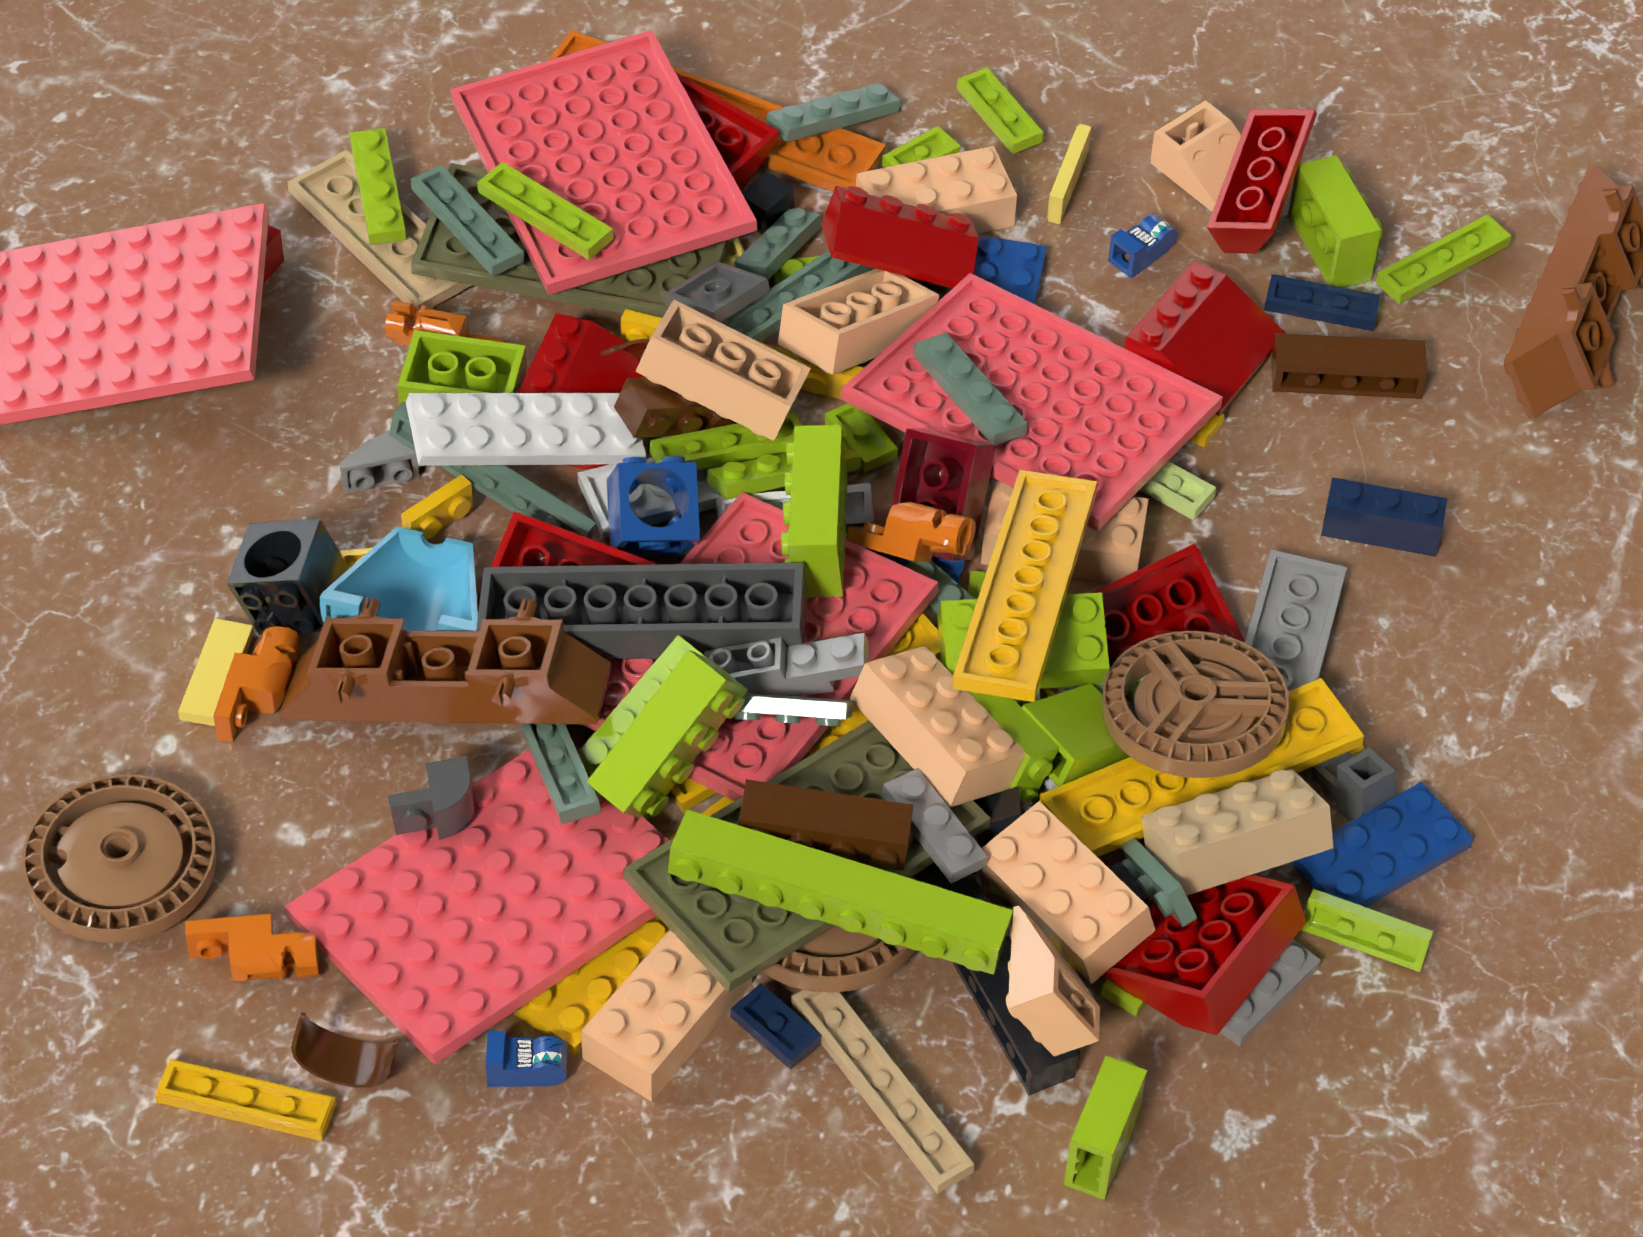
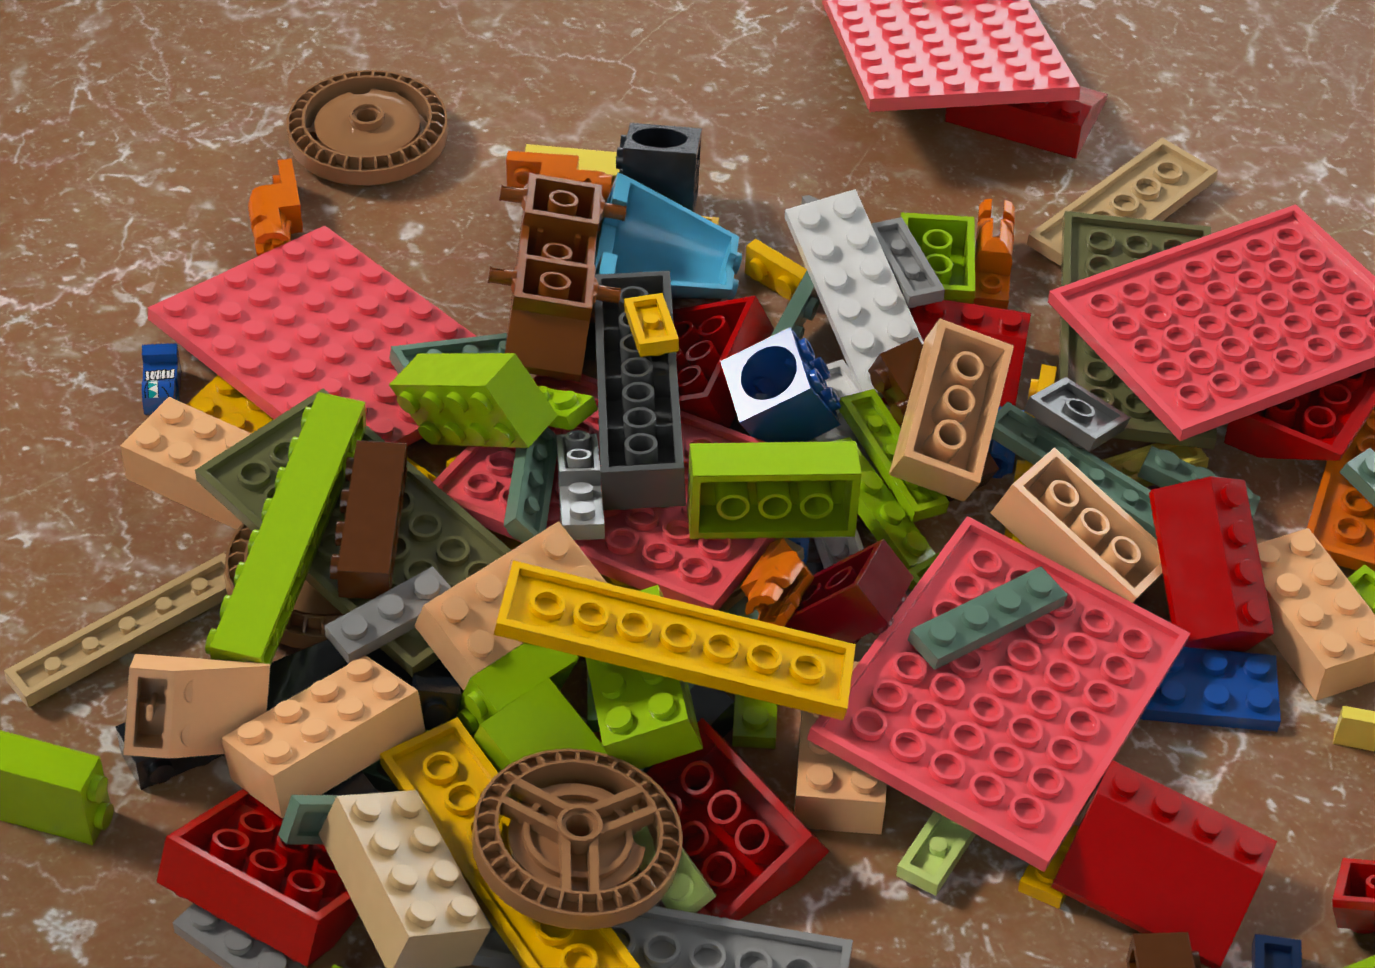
camera: 85 degrees right, 5 degrees down
(245, 1099) = (134, 230): yellow tile -> none
(339, 1057) = (176, 259): reddish brown piece -> none
(377, 186) = (1171, 189): lime plate -> none
(444, 806) = (423, 293): dark grey brick -> none
(467, 220) = (1124, 234): sand green plate -> none
(511, 377) = (908, 263): none -> light grey plate
(545, 210) = (1137, 272): lime plate -> none
(591, 574) = (651, 325): none -> yellow plate
(769, 199) = (1263, 473): black brick -> none
(775, 1026) = (193, 546): dark blue plate -> none
(1143, 243) = (1313, 811): blue leg -> none

